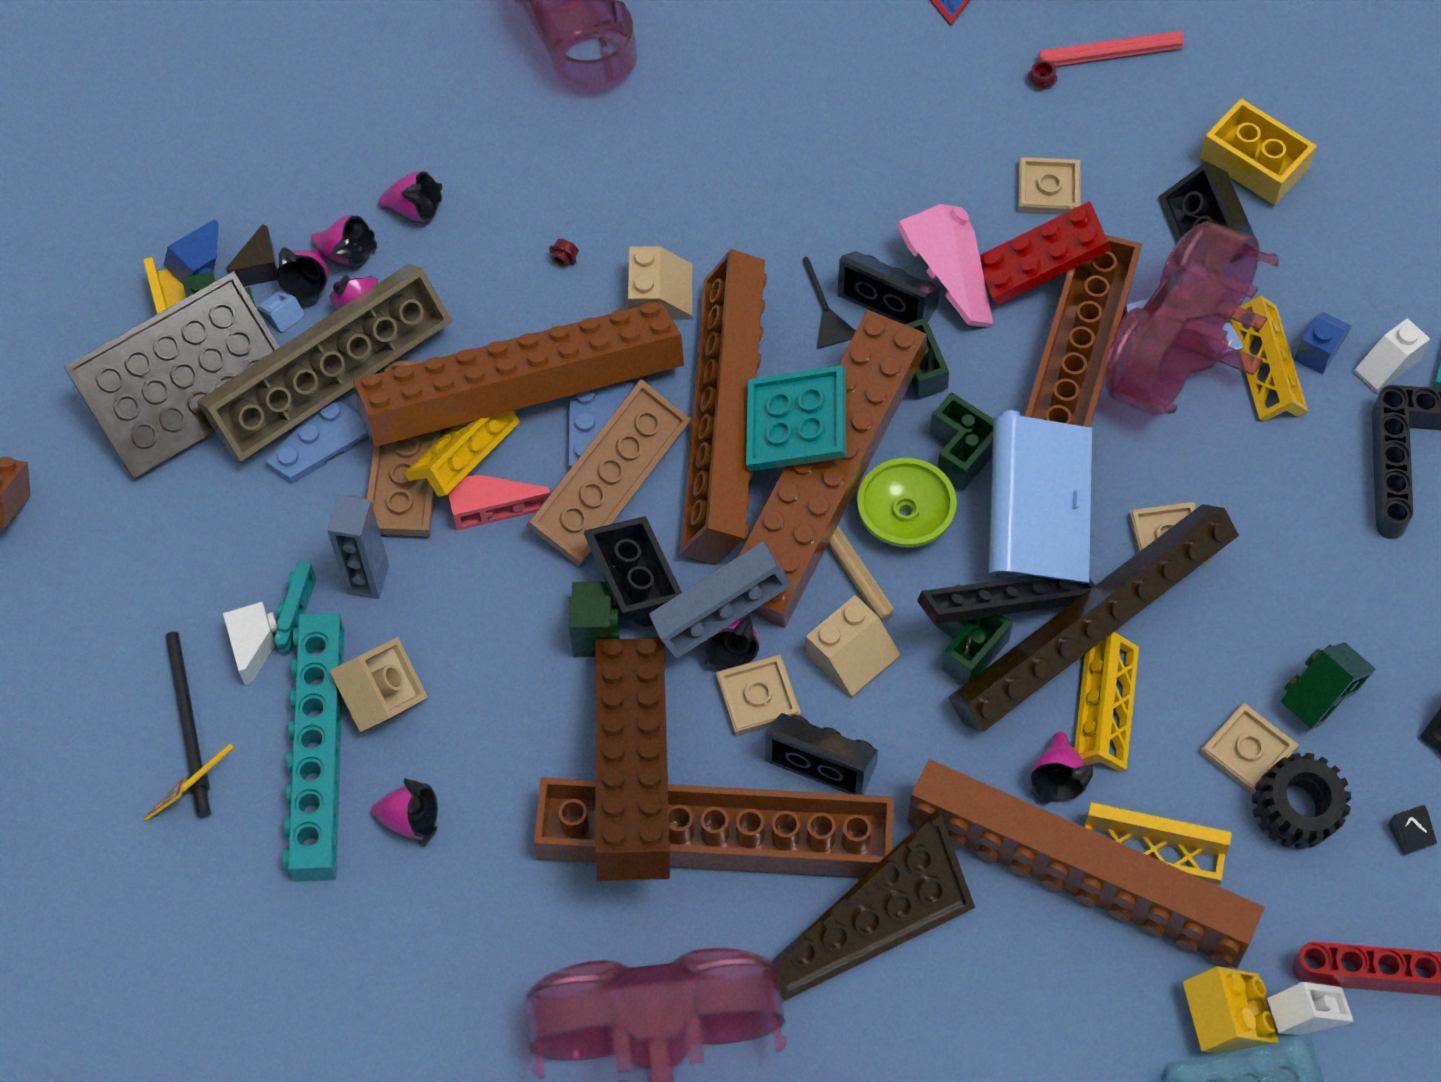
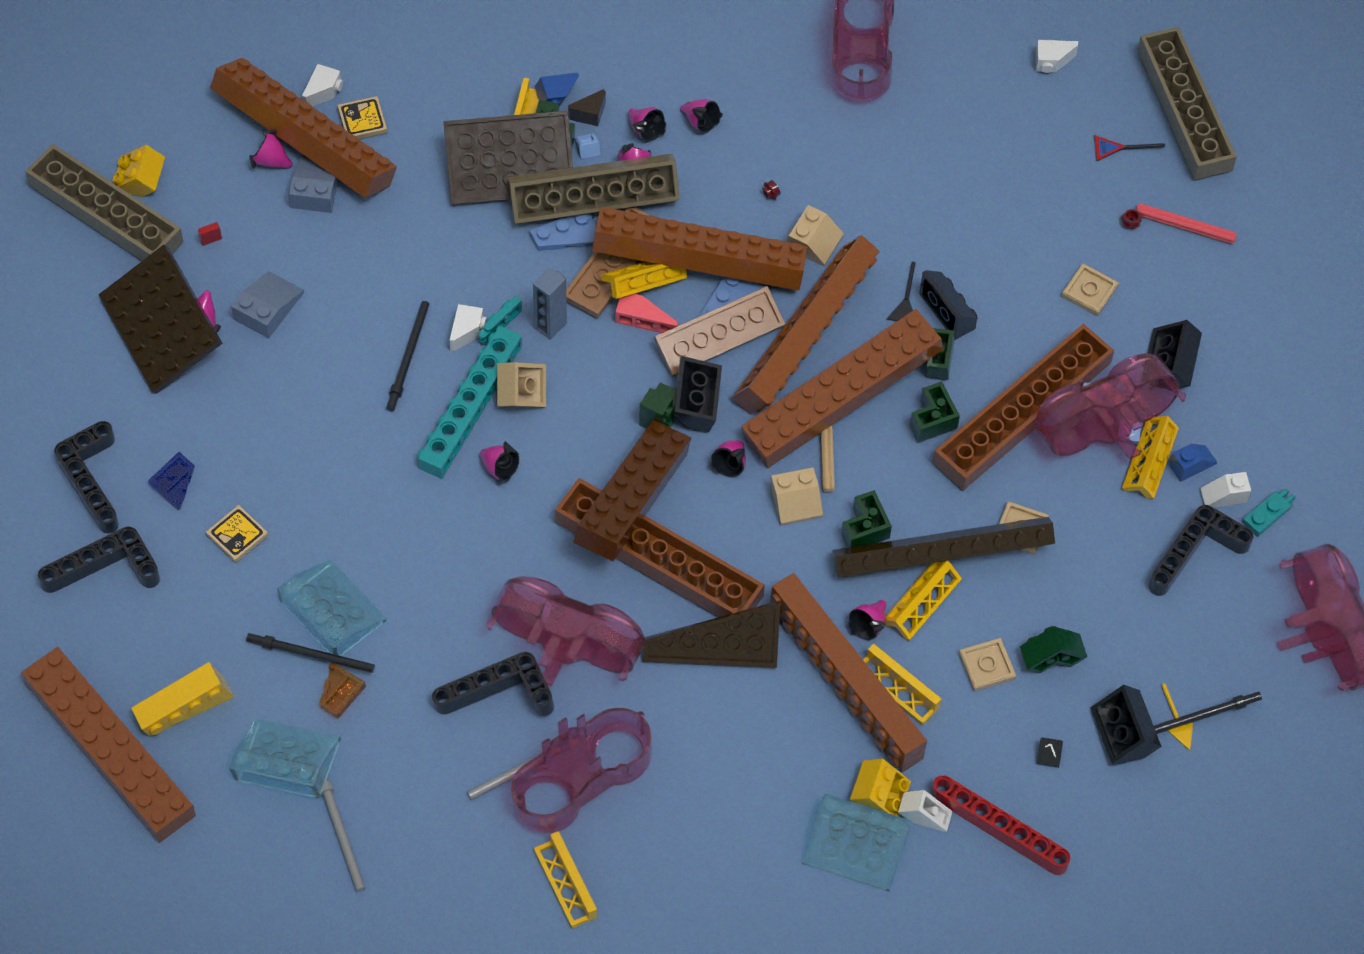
camera: 25 degrees right, 0 degrees up
(183, 785) = (391, 387): yellow piece -> none
(302, 274) = (610, 130): black hat -> none
(720, 600) = (732, 431): sand blue brick -> none
(757, 694) = (728, 496): tan tile -> none
(796, 418) = (836, 350): teal plate -> none
(820, 754) = (741, 543): black slope -> none
(909, 487) = (878, 421): lime dish -> none
(951, 251) = (998, 298): bright pink wedge -> none
(999, 598) = (895, 509): black plate -> none
(1040, 499) = (952, 466): light blue door -> none
(1044, 253) = (1052, 327): red plate -> none
(1258, 151) = (1229, 330): yellow brick -> none
(1323, 787) = (1000, 687): black tyre -> none

